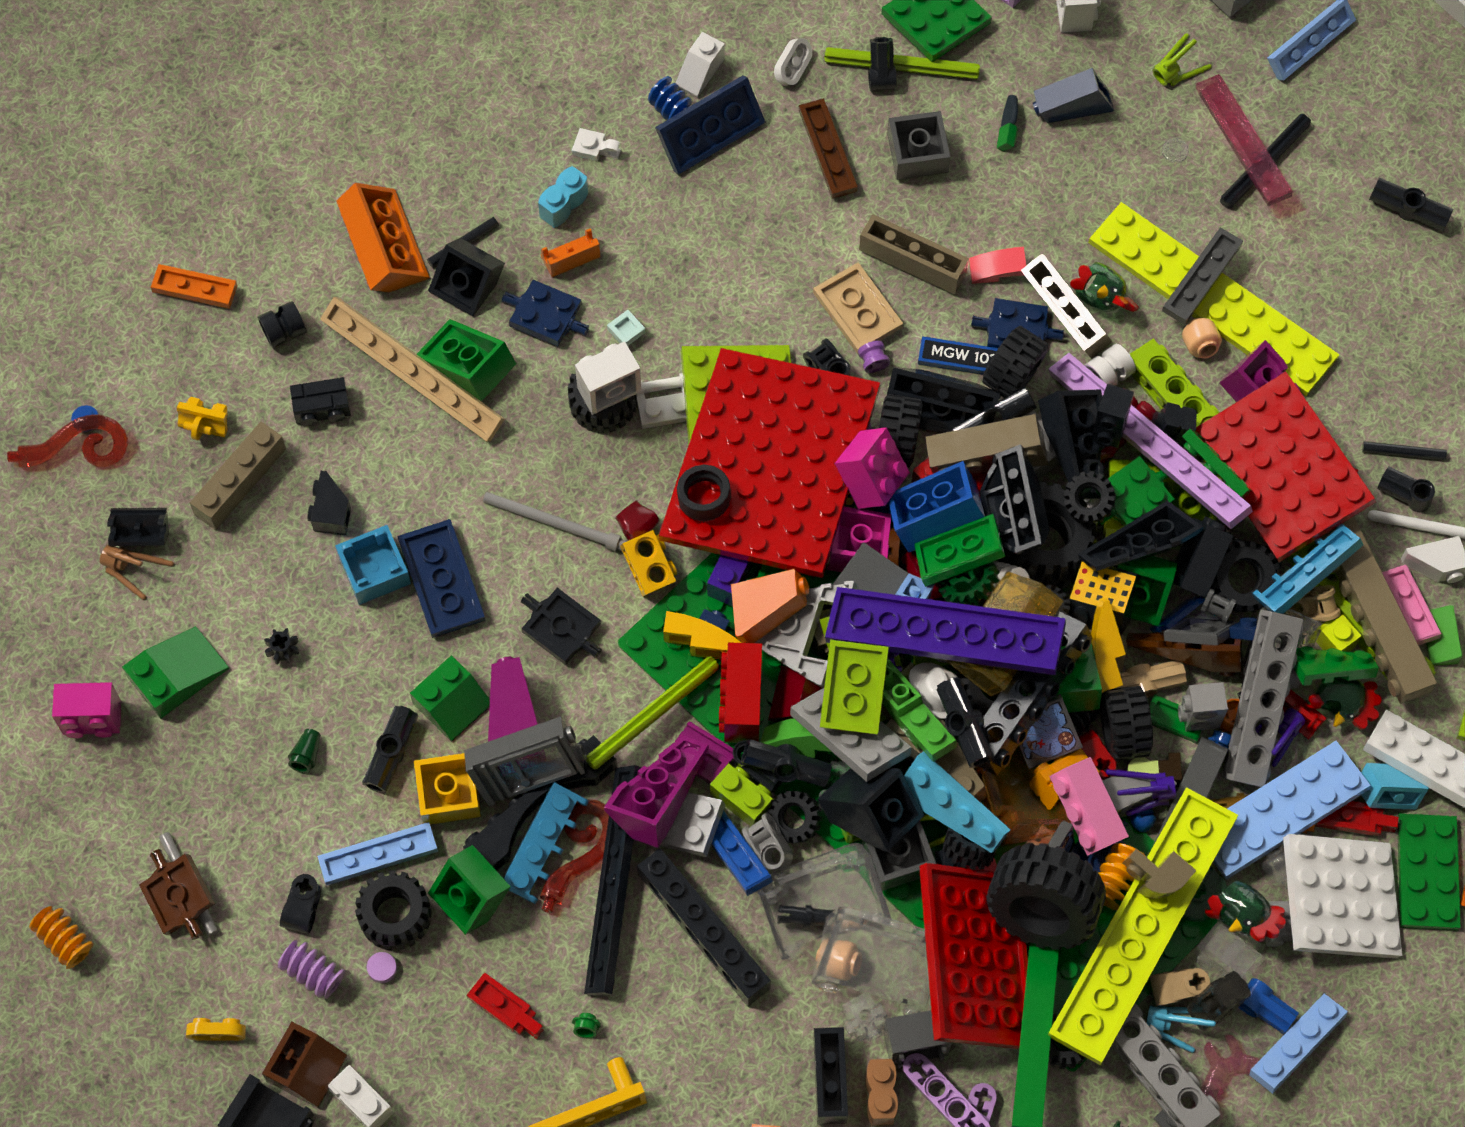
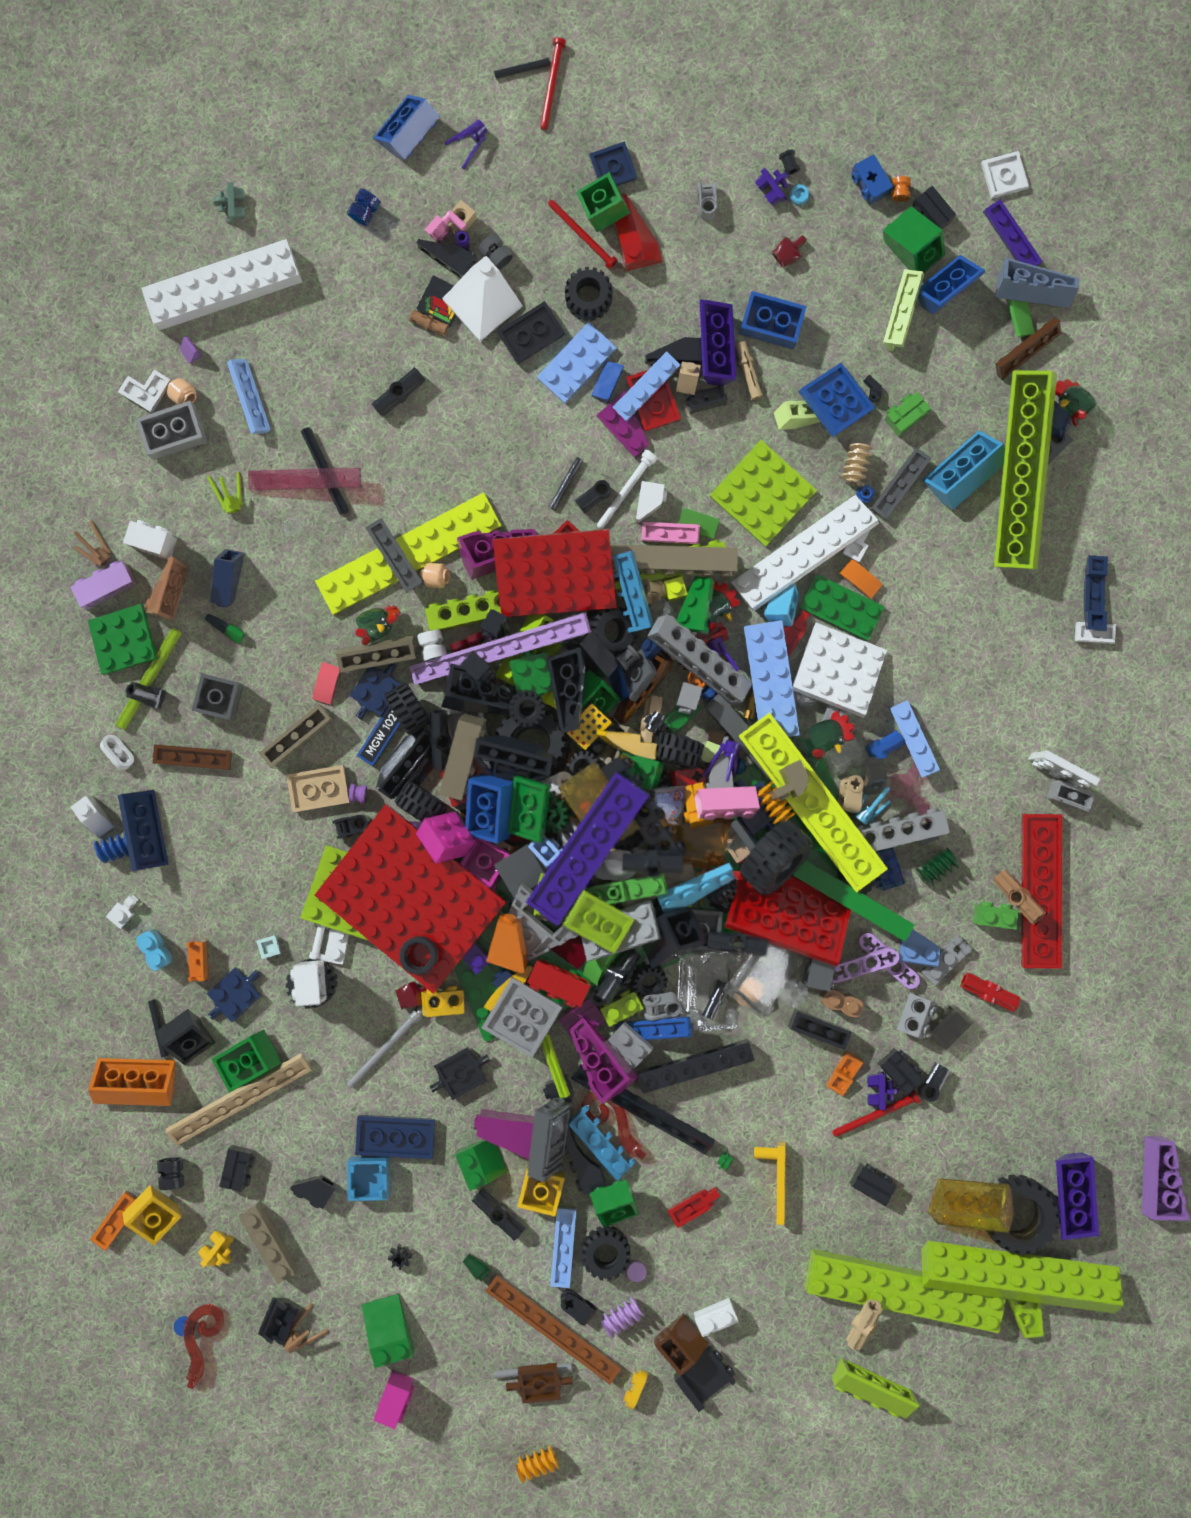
camera: 65 degrees left, 20 degrees up
(221, 320) = (151, 1215): none -> yellow brick
(258, 887) = (553, 1329): none -> dark orange plate
(675, 661) = (522, 1017): none -> light grey plate
(904, 894) = (750, 946): none -> black piece
(1026, 37) = (167, 590): none -> nougat slope
(1096, 1082) = (892, 876): none -> clear blue brick
(1149, 676) = (655, 722): none -> black gear
(1214, 463) = (530, 618): green wing -> none

